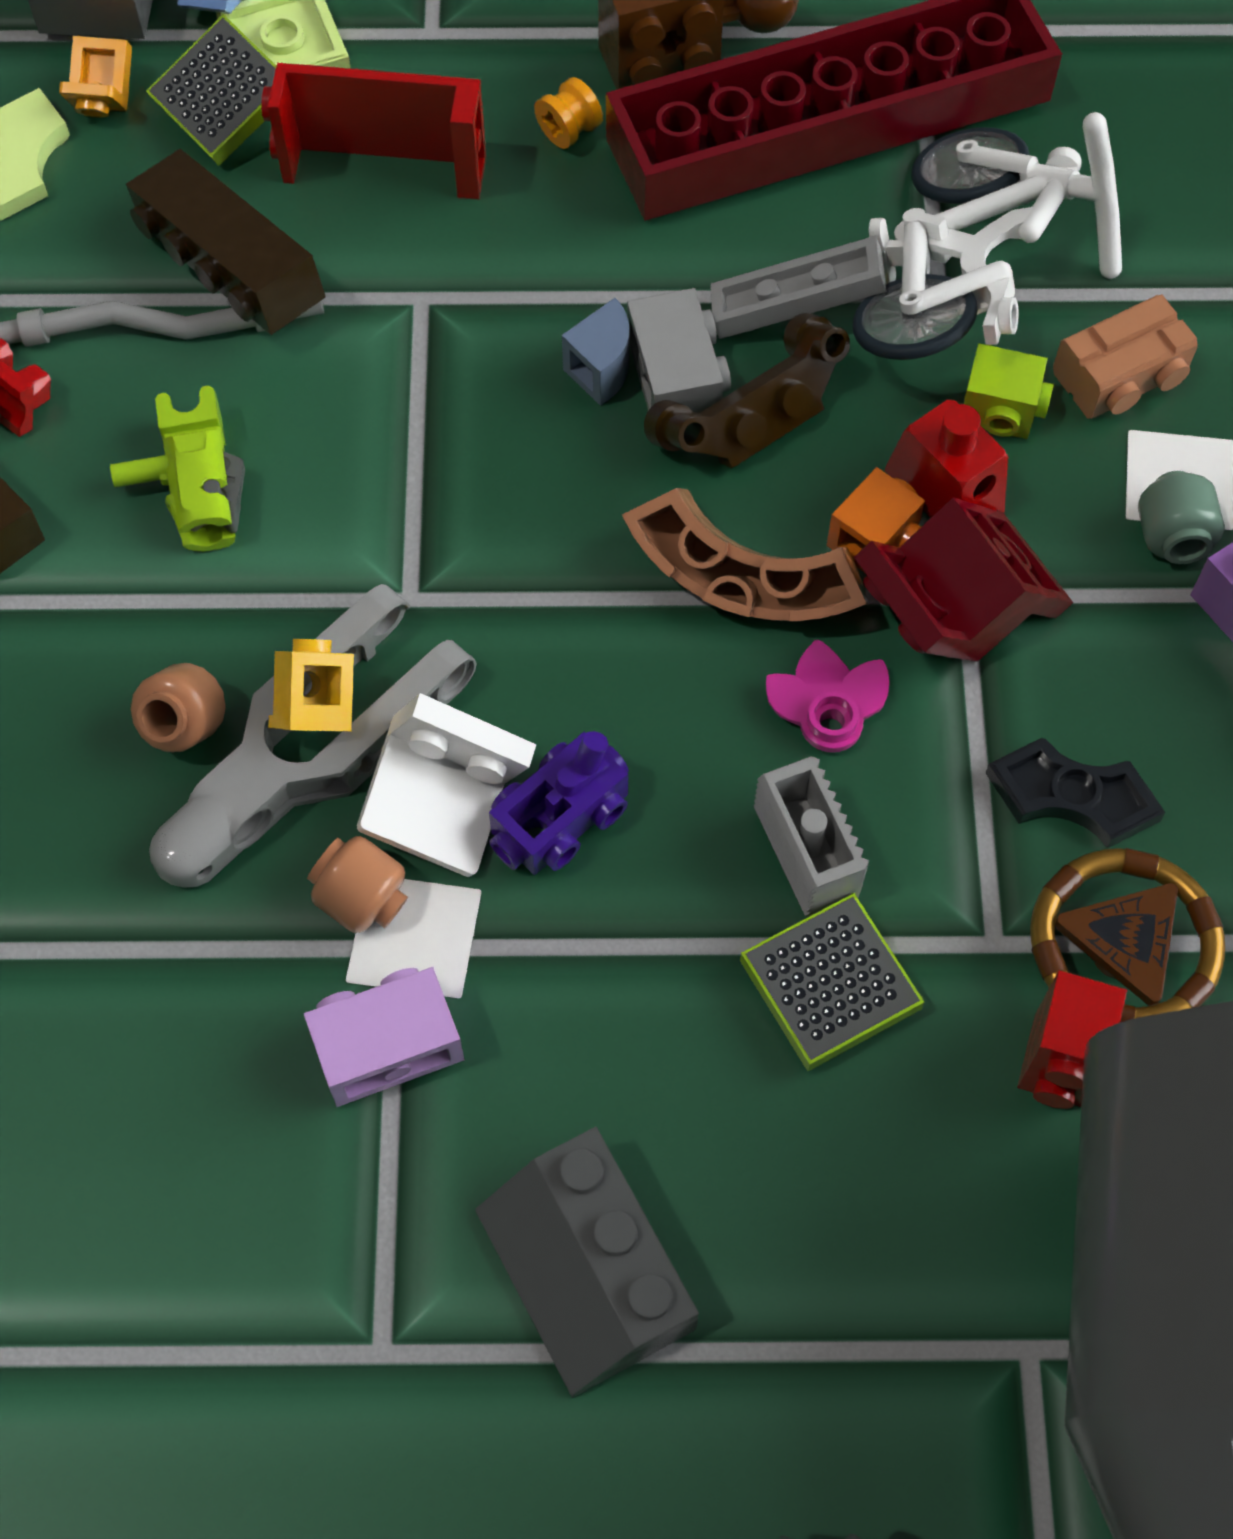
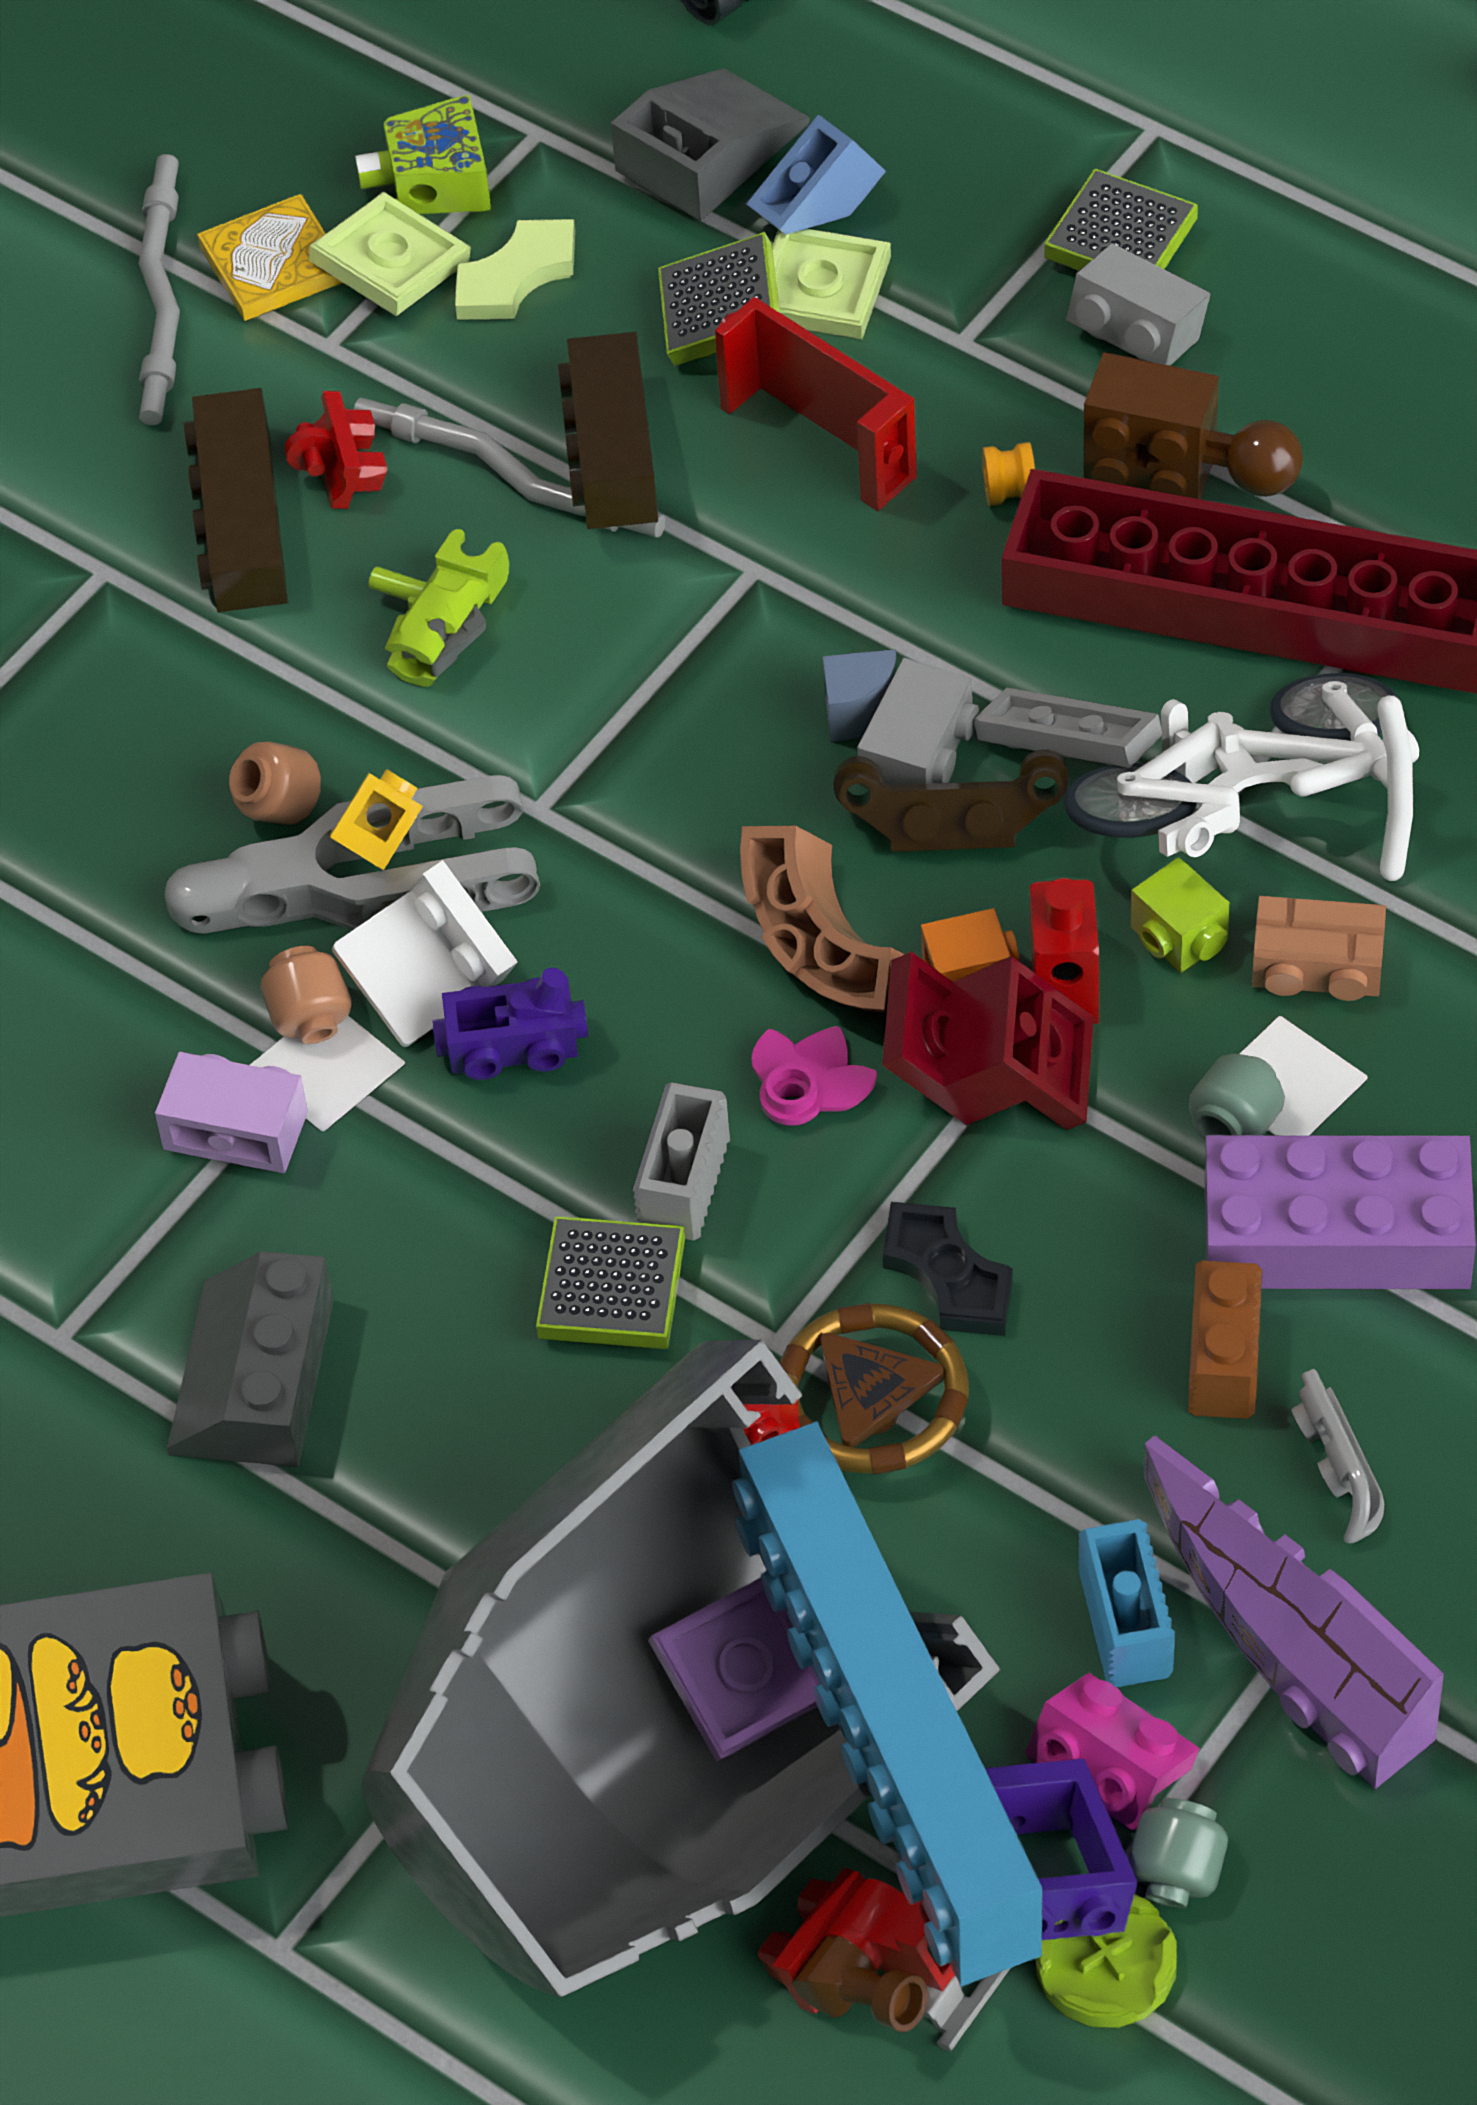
camera: 40 degrees right, 10 degrees down
(98, 76) = (629, 234): light orange bracket -> none

